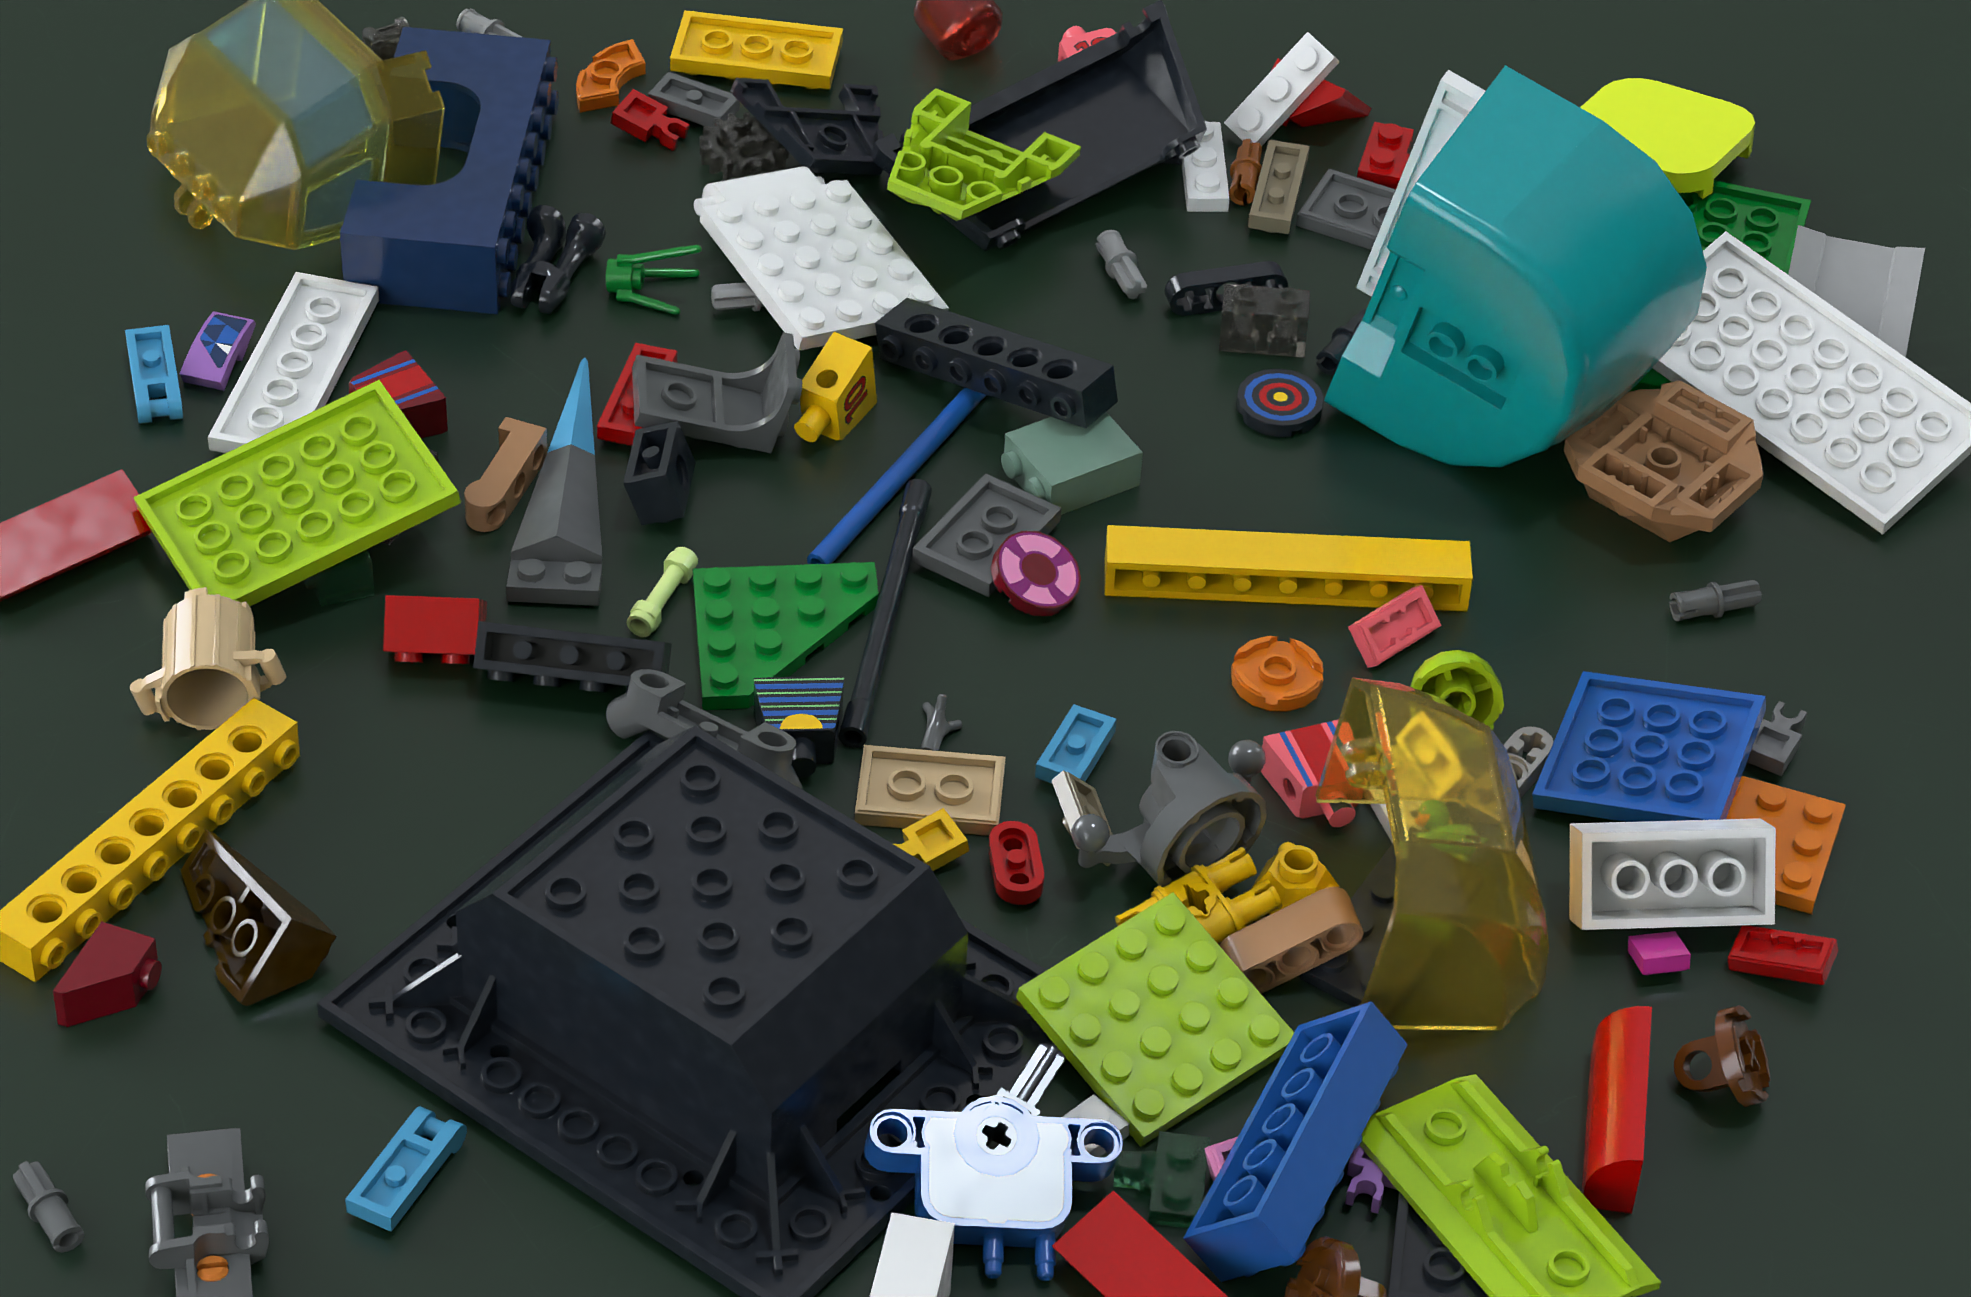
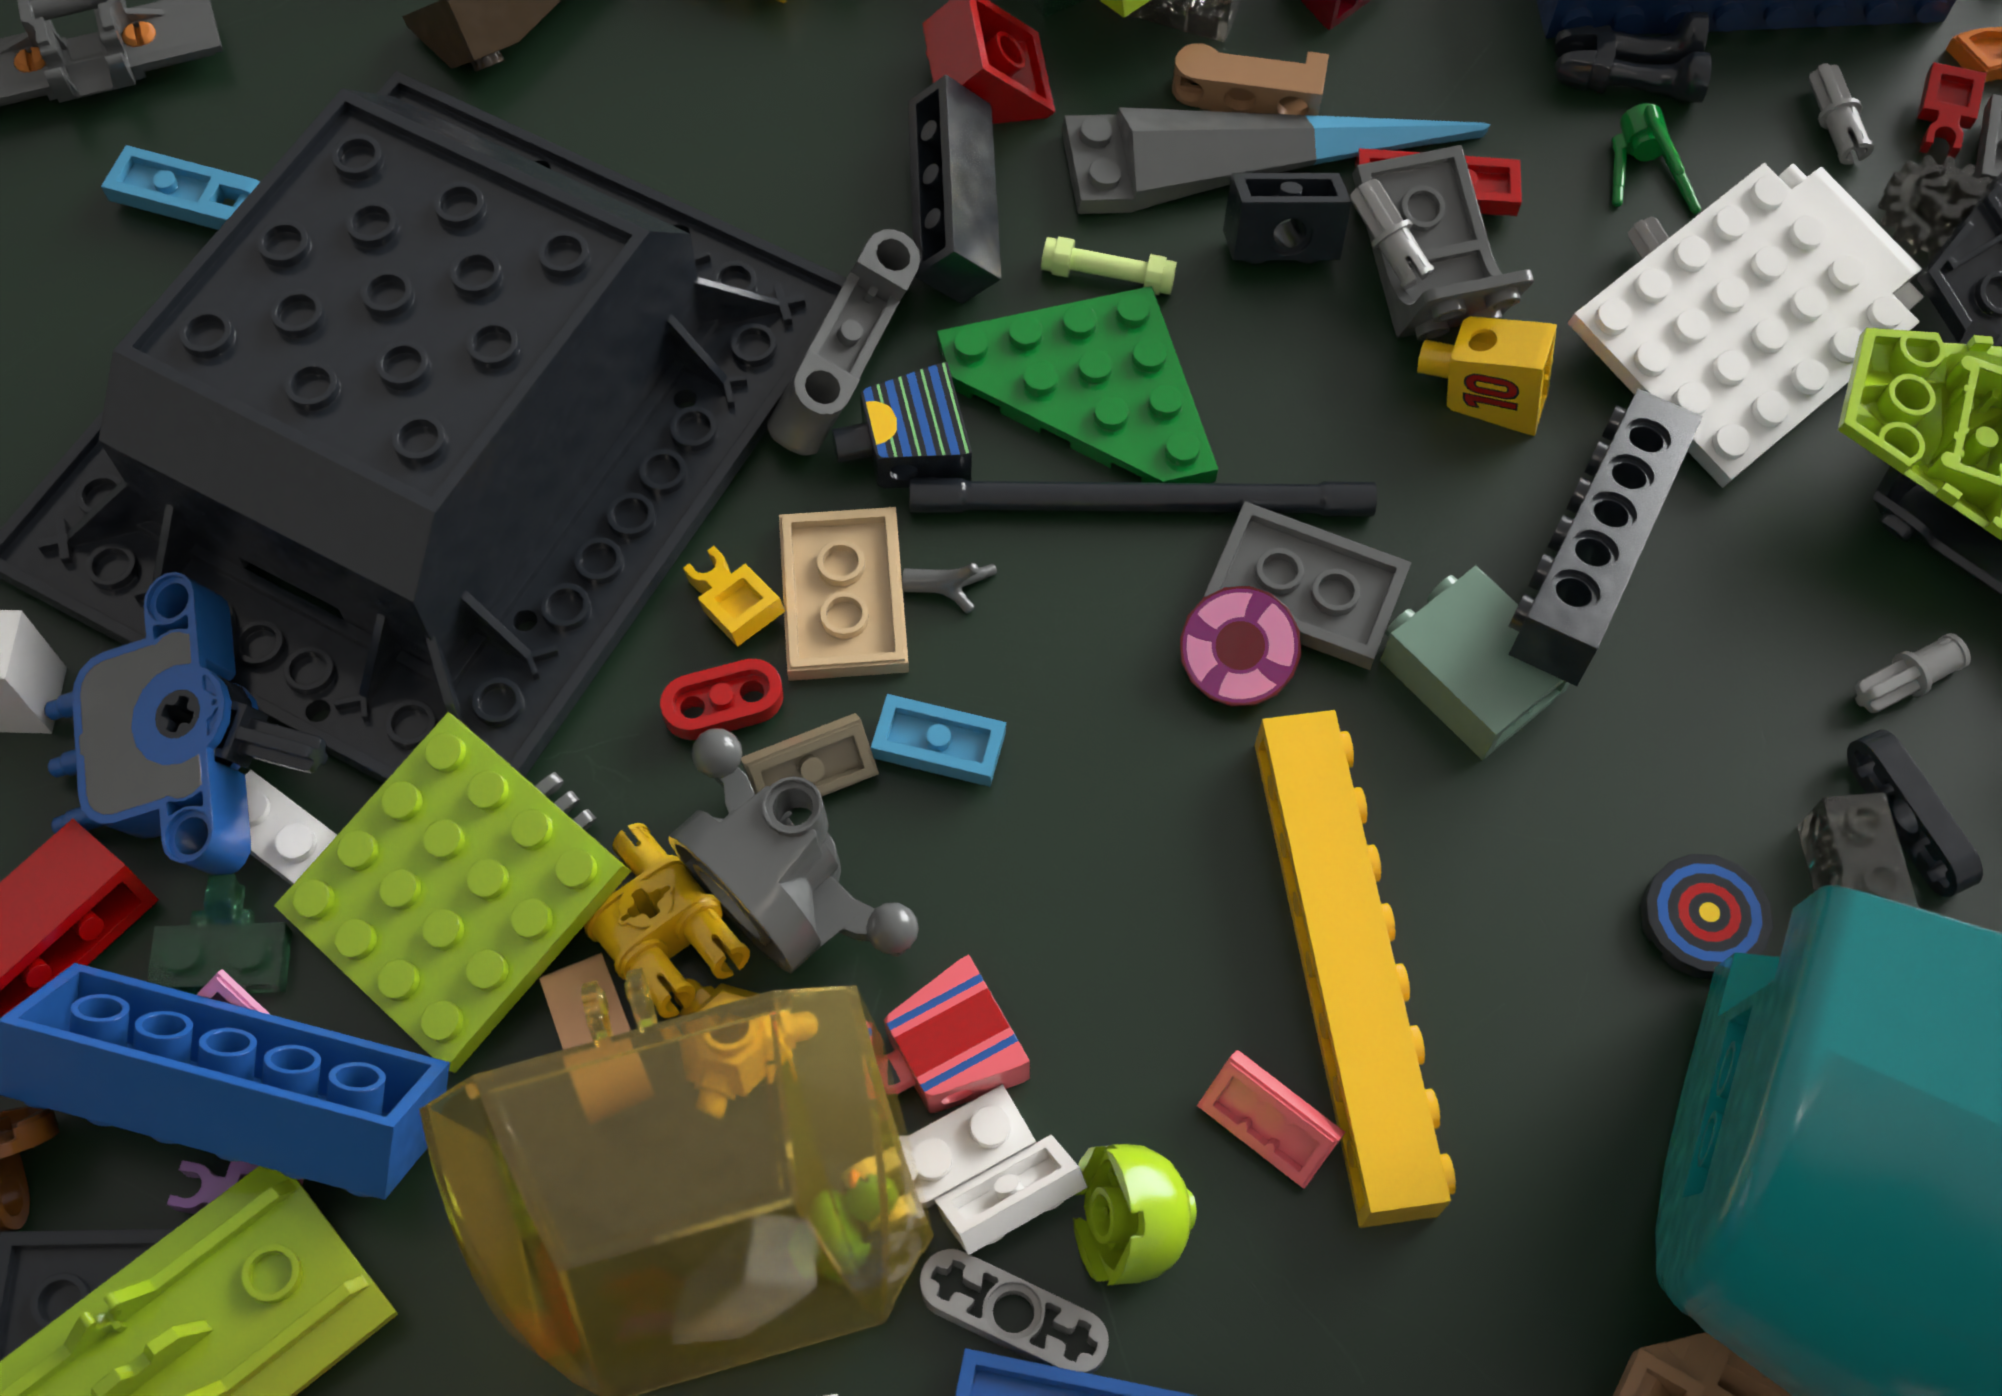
camera: 80 degrees right, 20 degrees up
(634, 174) = (1840, 113): none -> light grey axle
(711, 408) = (1390, 232): none -> light grey axle
(895, 477) = (1388, 471): blue piece -> none
(1277, 674) = (1151, 975): orange tile -> none

